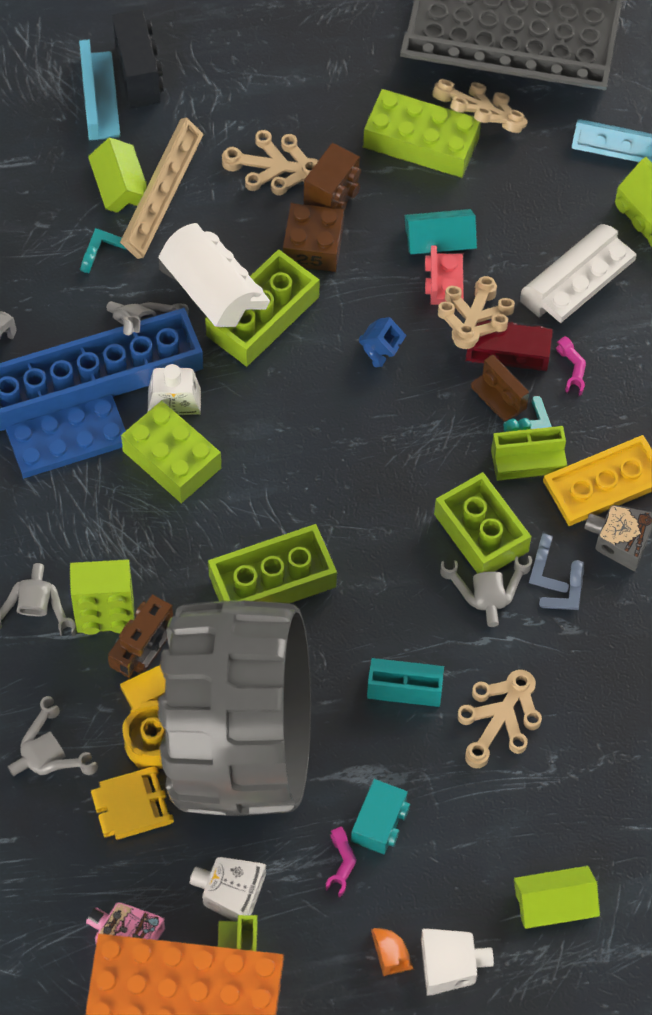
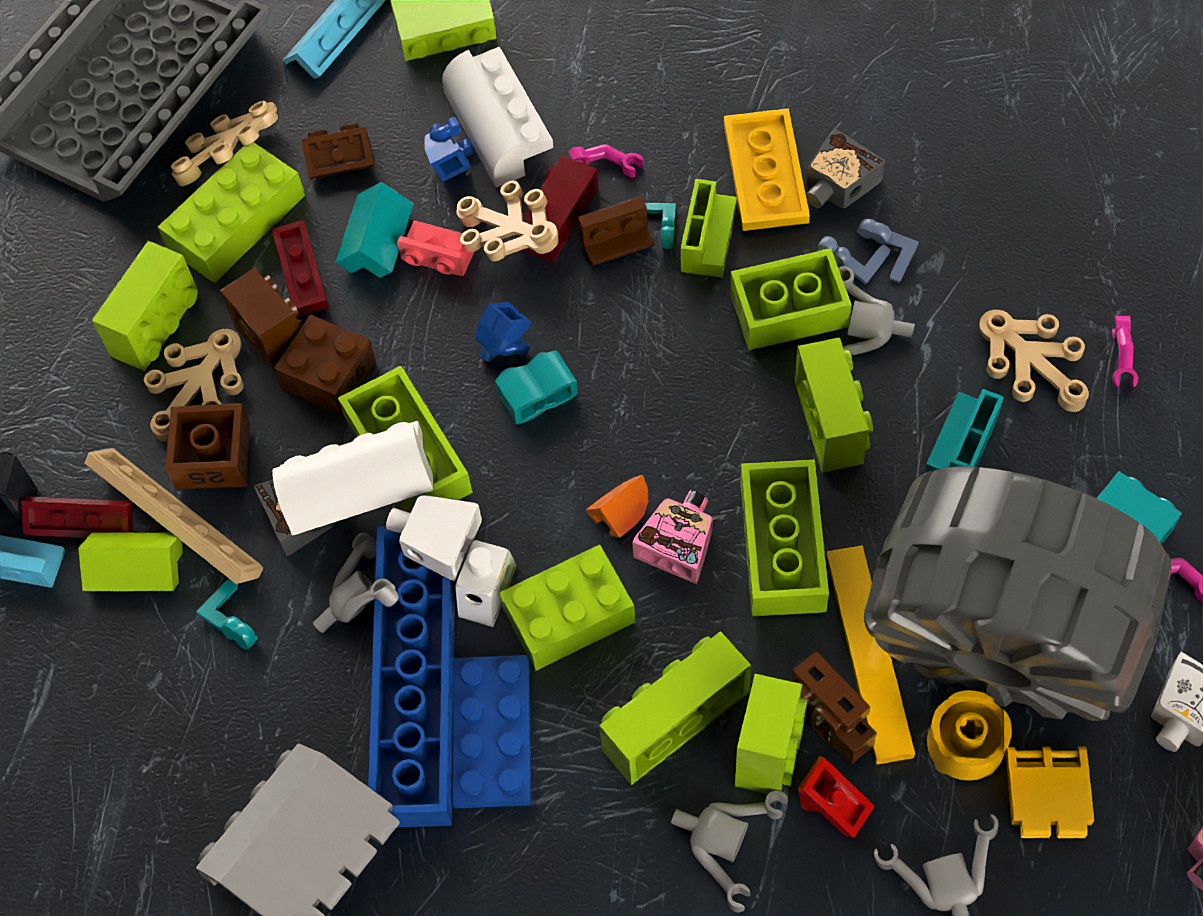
camera: 65 degrees left, 0 degrees up
(78, 659) = (834, 797): none -> red slope
(110, 535) = (674, 707): none -> lime brick
(140, 131) = (74, 516): none -> dark red plate
(185, 341) = (437, 532): none -> white torso
(219, 187) = (208, 446): none -> reddish brown brick
(253, 507) = (676, 537): none -> torso
(265, 464) = (621, 506): none -> orange brick
(315, 107) = (146, 306): none -> lime brick
(346, 378) = (536, 386): none -> teal brick
(392, 194) = (300, 267): none -> dark red plate
(394, 575) = (832, 404): none -> lime brick
(503, 183) = (337, 151): none -> reddish brown bracket
(530, 253) = (443, 153): none -> blue piece
(549, 777) = (1126, 347): none -> dark pink arm

